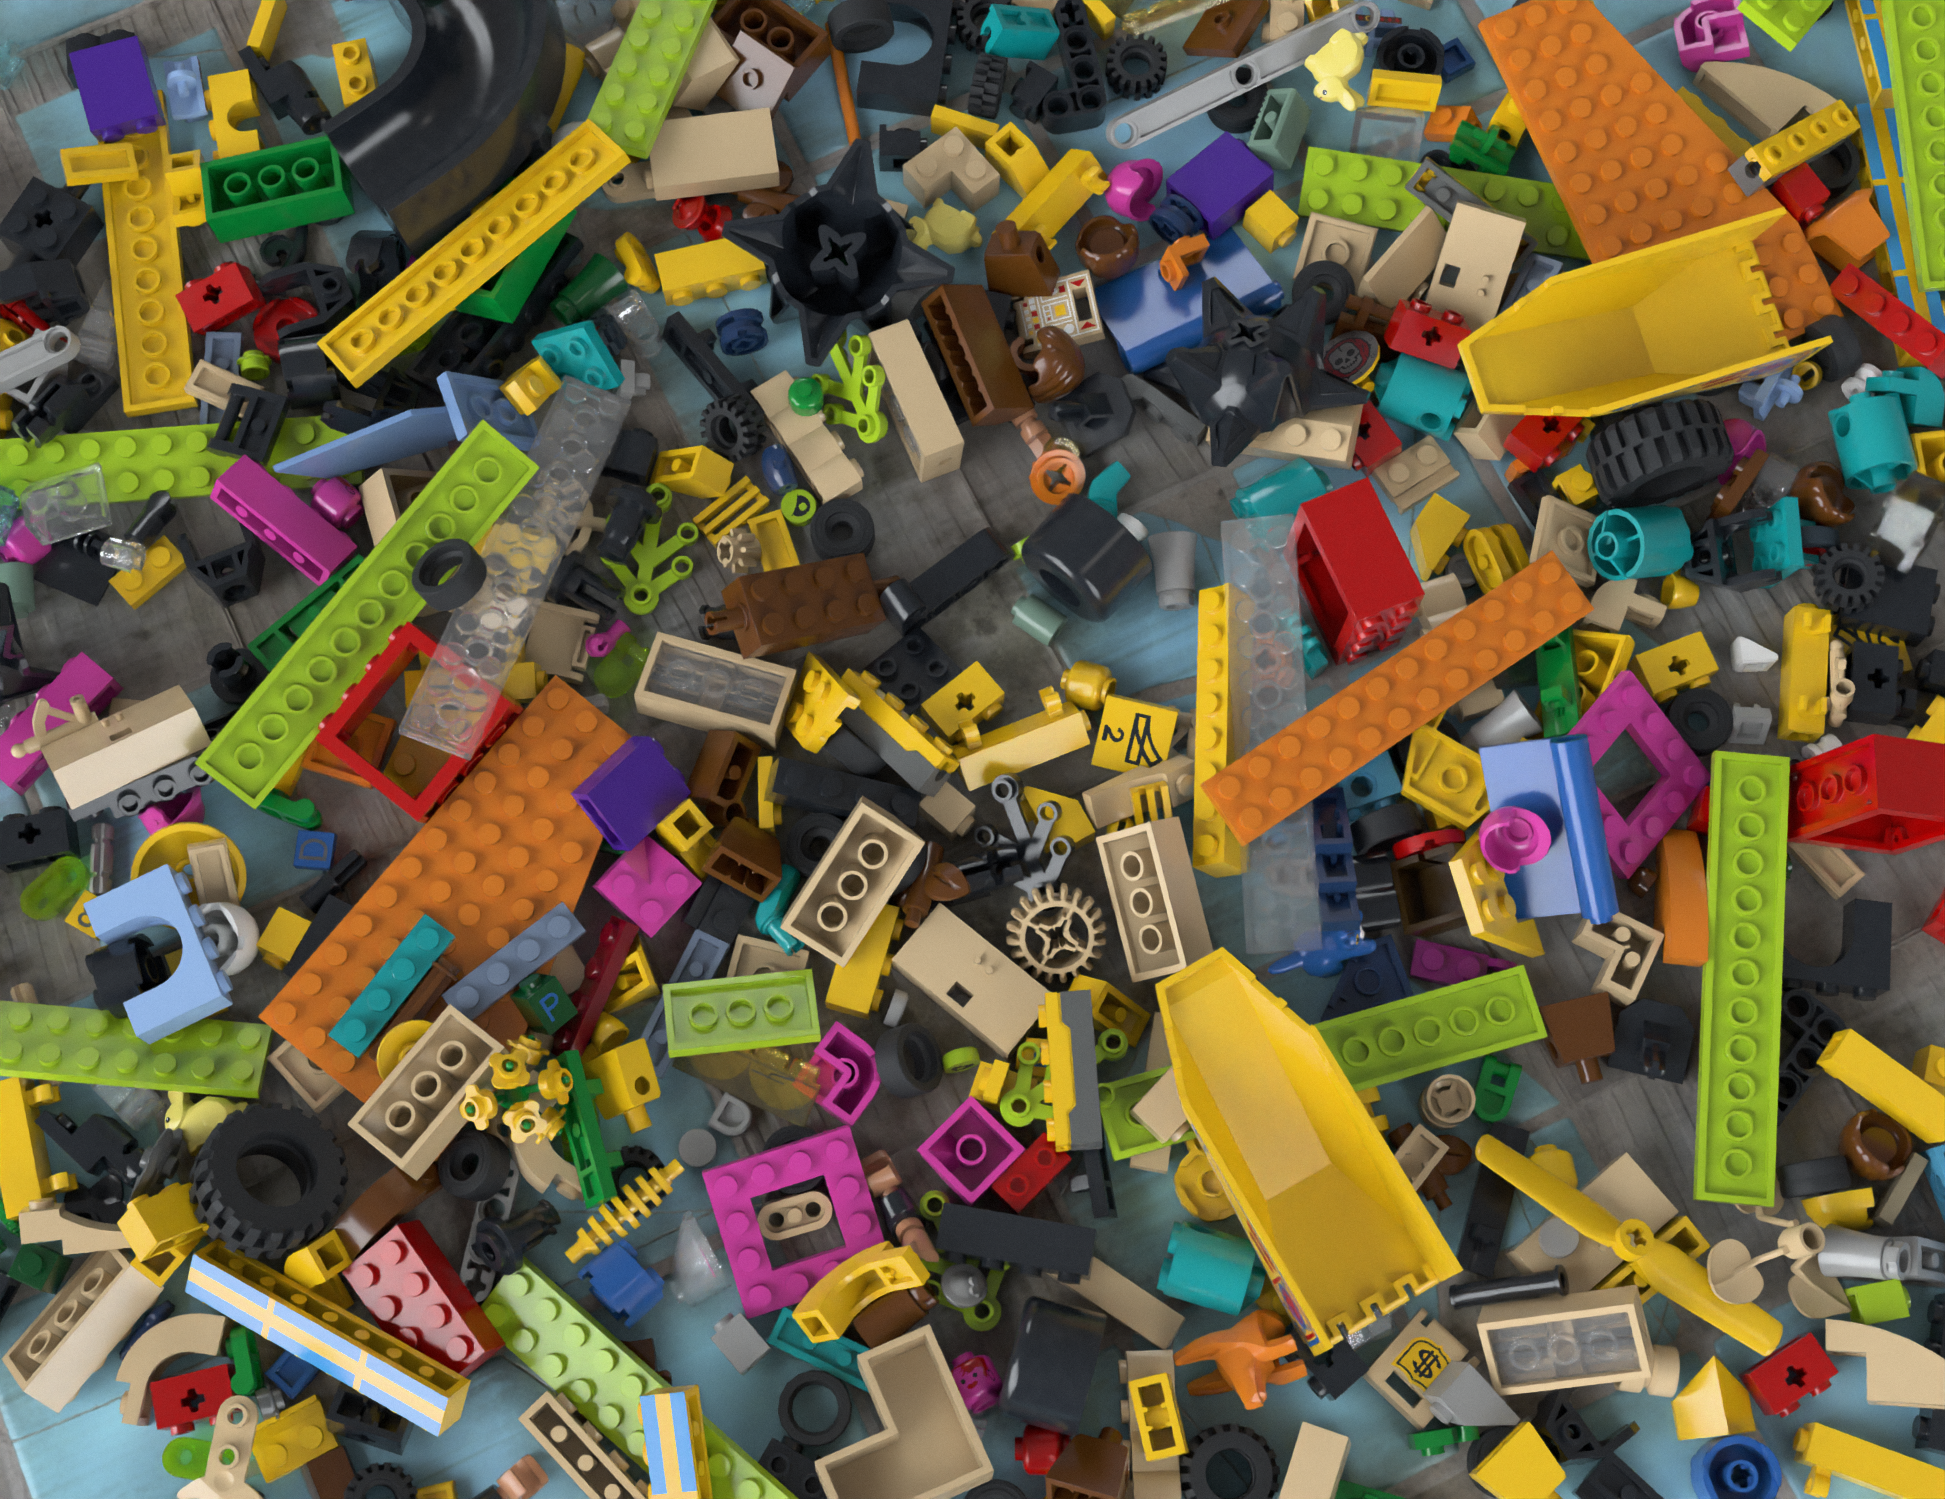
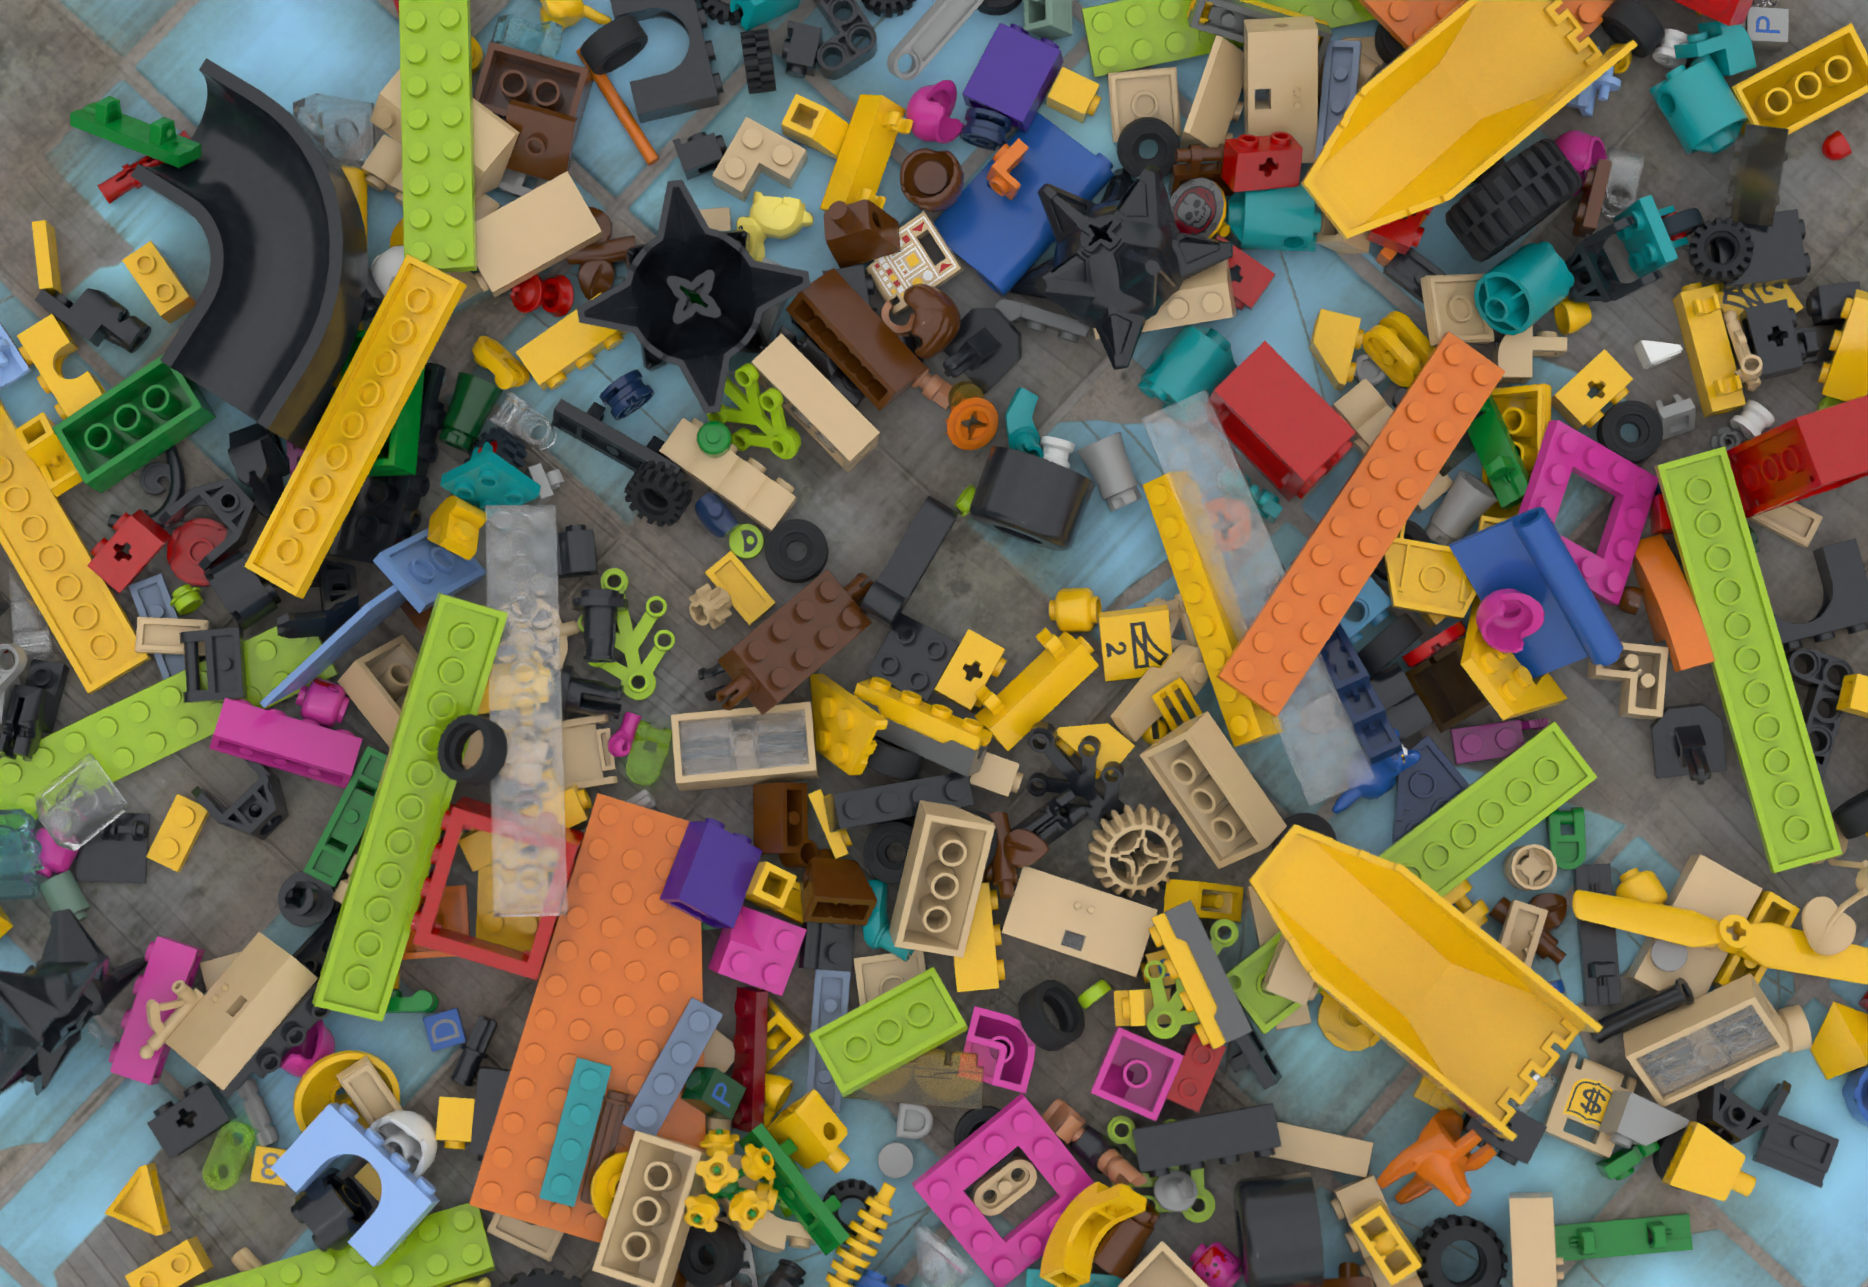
camera: 20 degrees left, 10 degrees up
(140, 535) = (157, 827): piece -> none
(693, 472) = (636, 547): yellow slope -> none
(722, 502) = (699, 543): yellow tile -> none
(896, 1008) = (1019, 970): light grey tile -> none
(974, 128) = (756, 109): yellow tile -> none
(1038, 619) = (1006, 564): sand green brick -> none
(1211, 1269) = (1380, 1094): teal cylinder -> none
(1415, 474) = (1295, 291): tan plate -> none
(1577, 486) = (1446, 253): yellow brick -> none
(1580, 1034) = (1623, 760): reddish brown torso -> none
(1822, 495) = (1669, 175): reddish brown piece -> none

